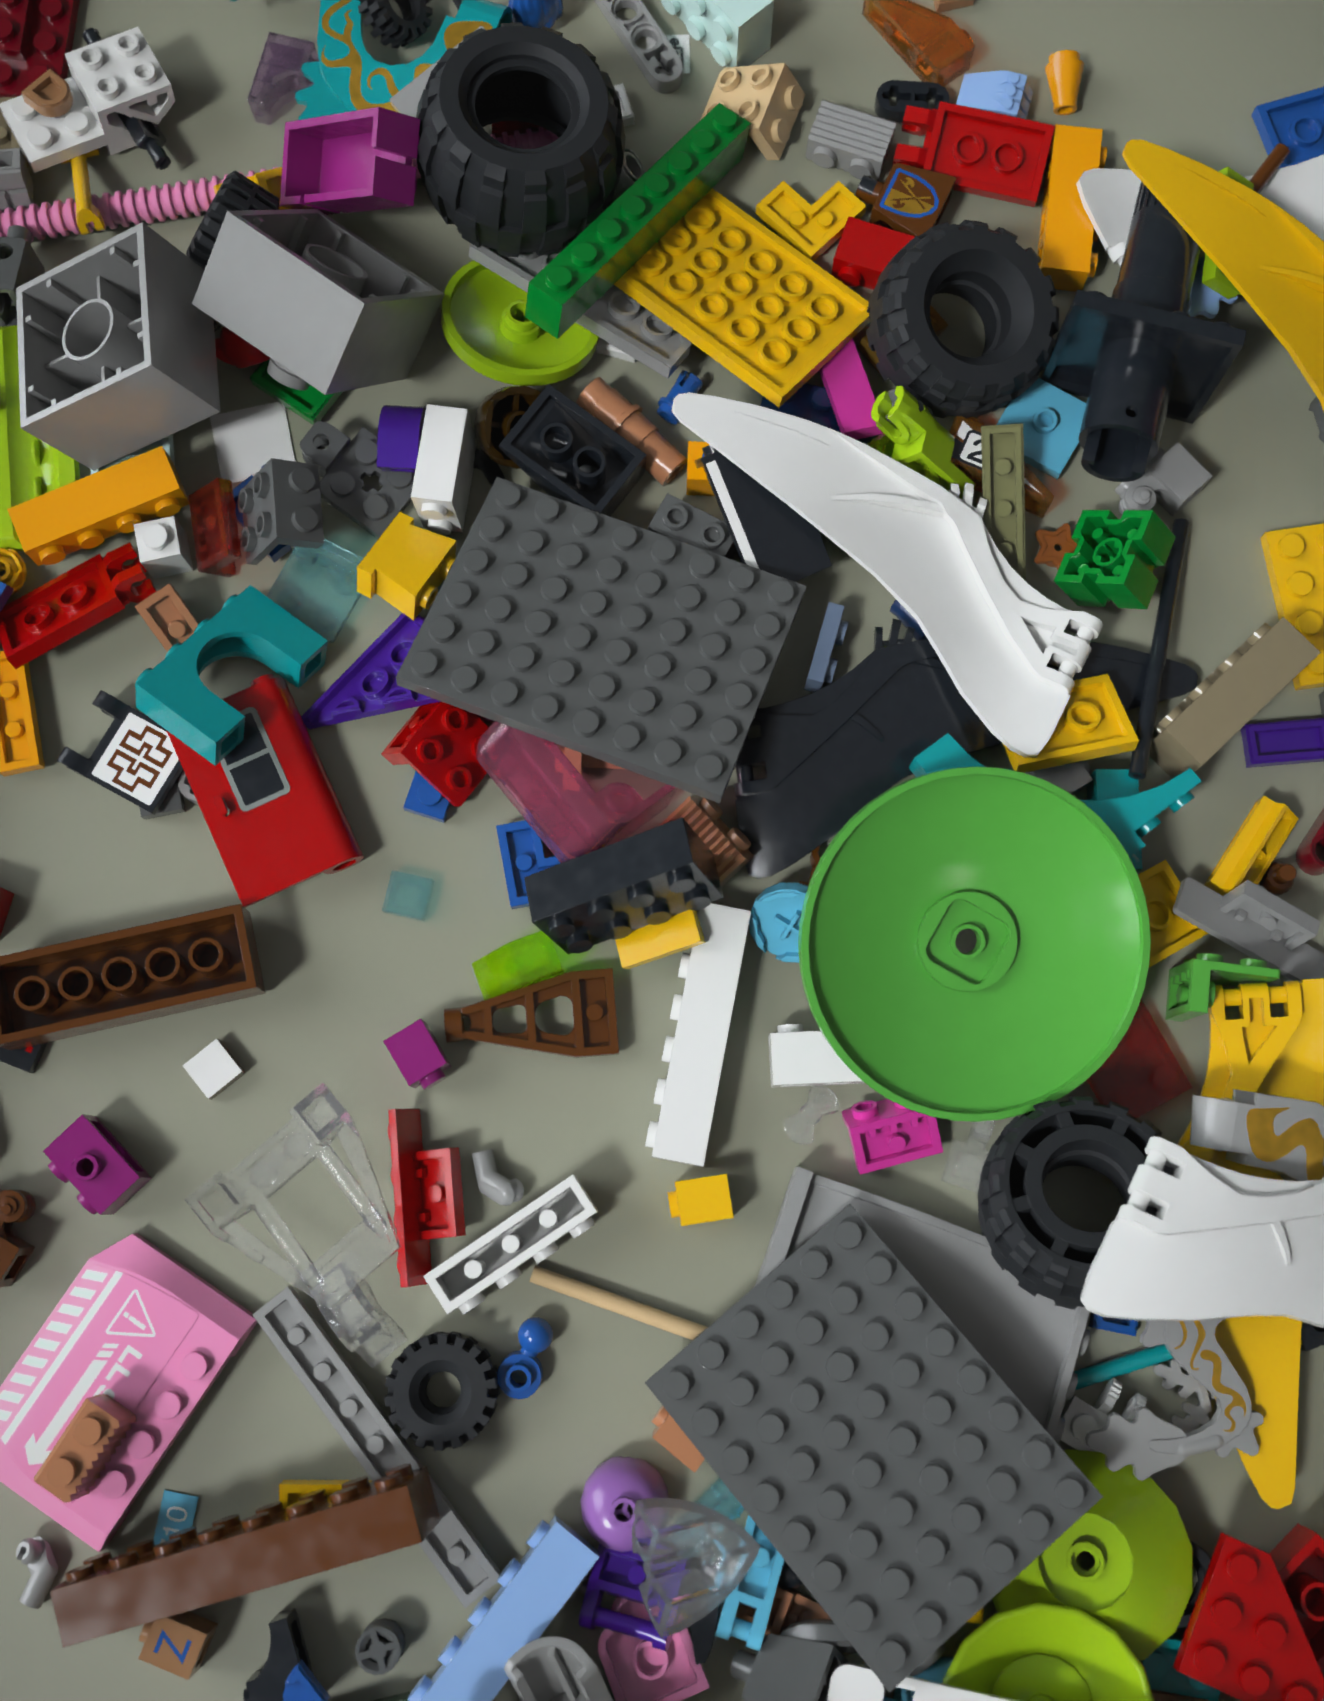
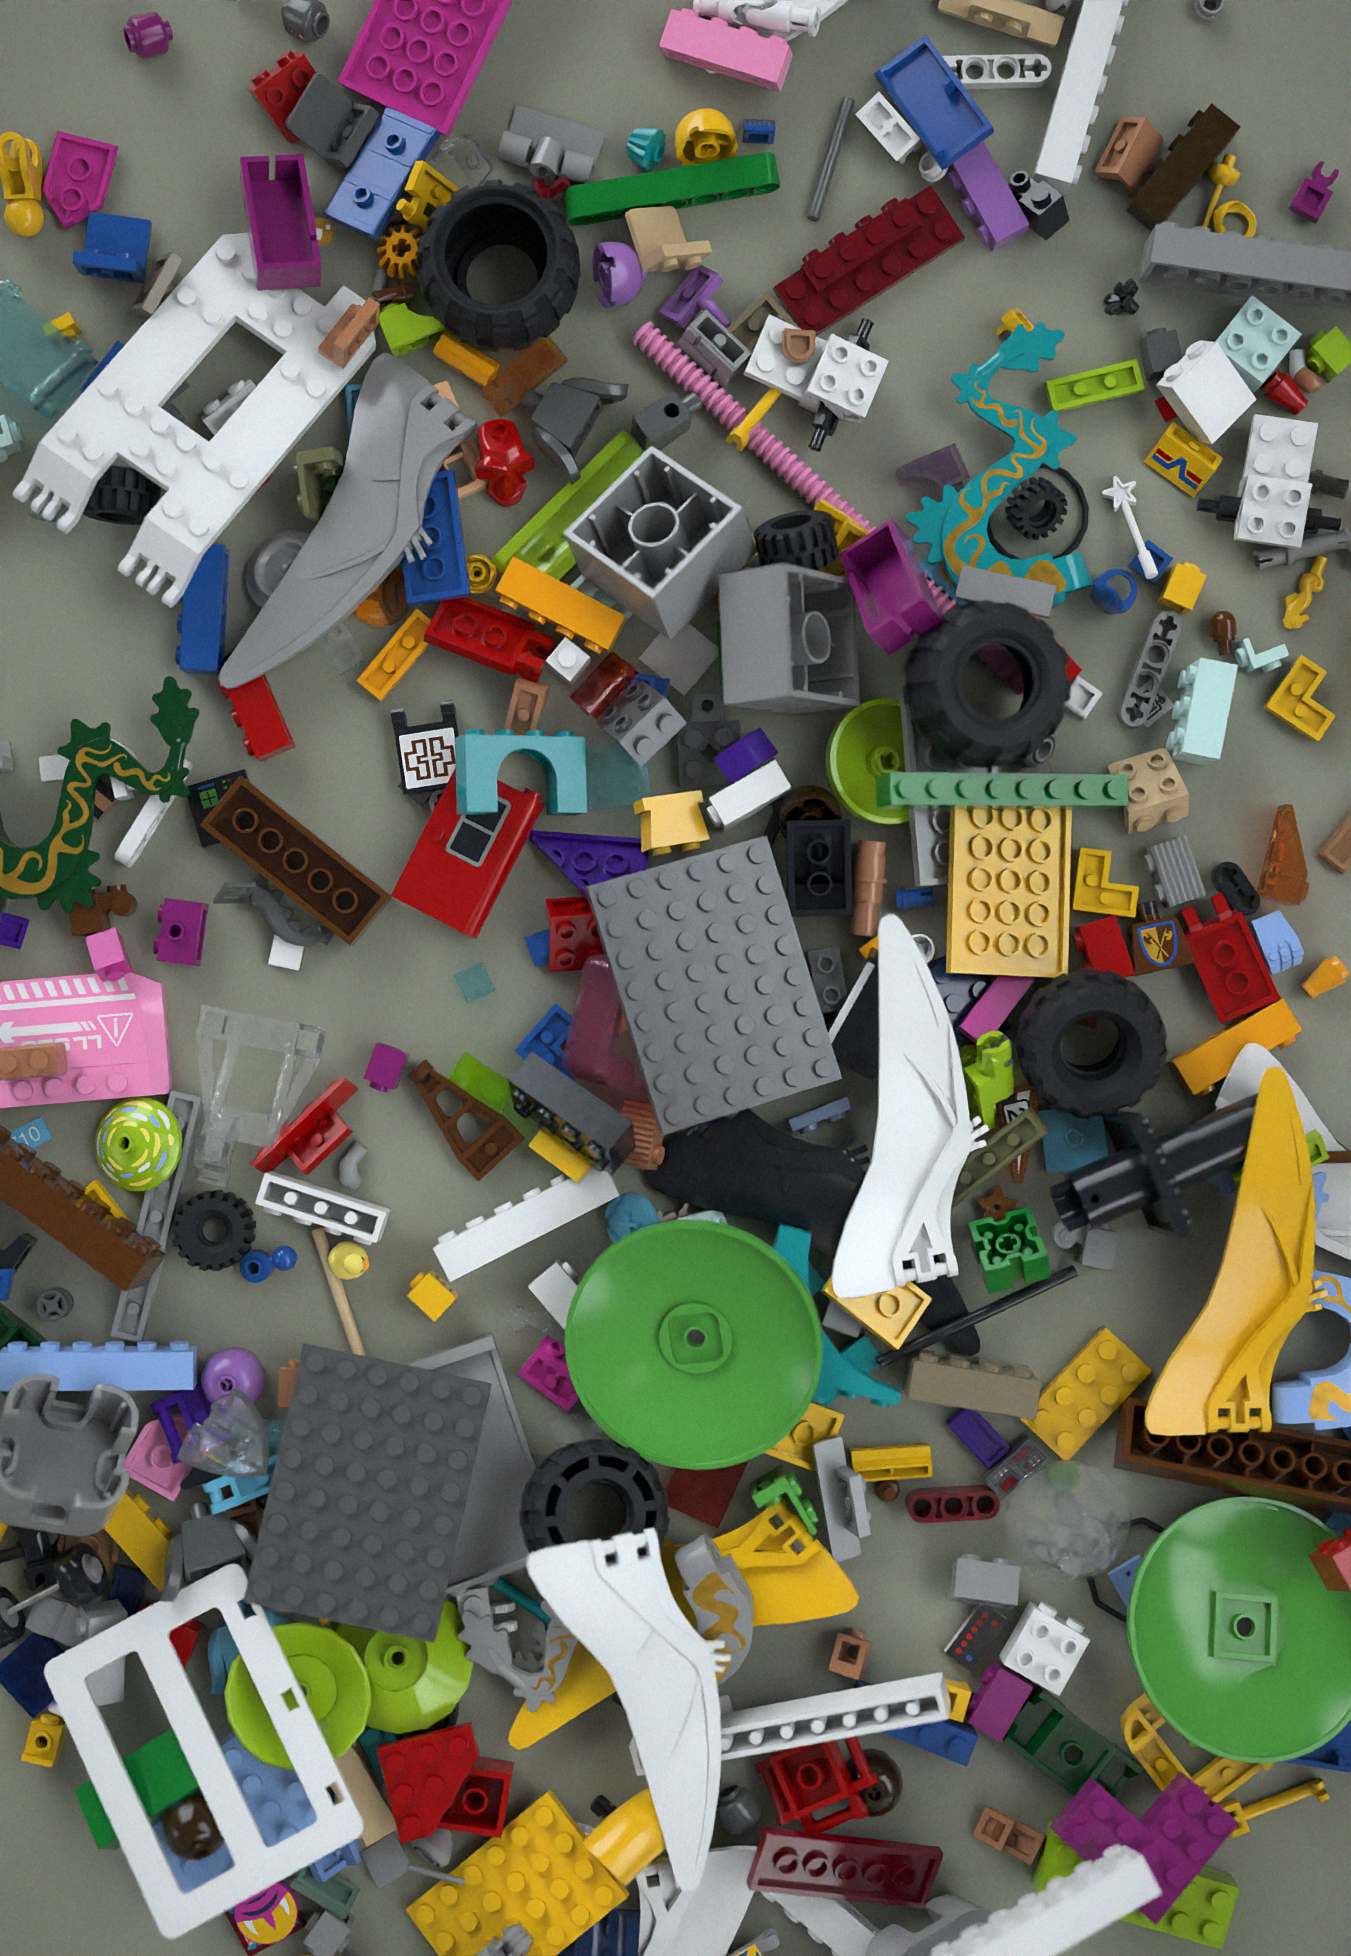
camera: 50 degrees right, 10 degrees up
(51, 1265) = (108, 955): none -> brick
(145, 1043) = (275, 914): none -> dark grey piece
(299, 1389) = (153, 1145): none -> lime dish
(593, 1263) = (348, 1260): none -> light yellow animal

